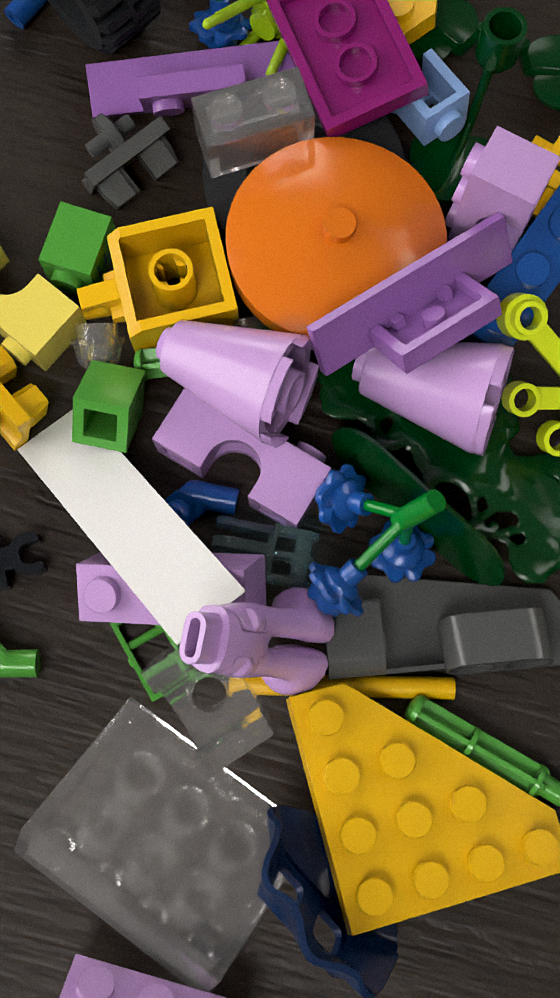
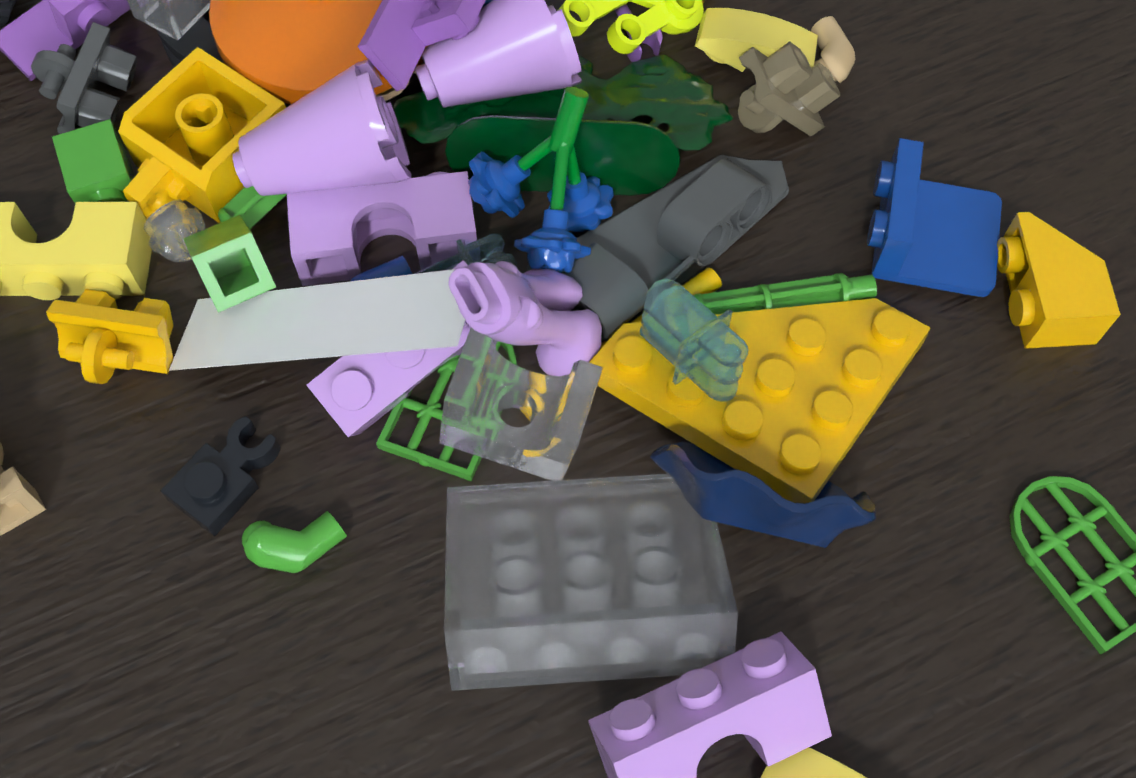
camera: 40 degrees left, 15 degrees down
(368, 752) = (694, 339): none -> clear light blue arm

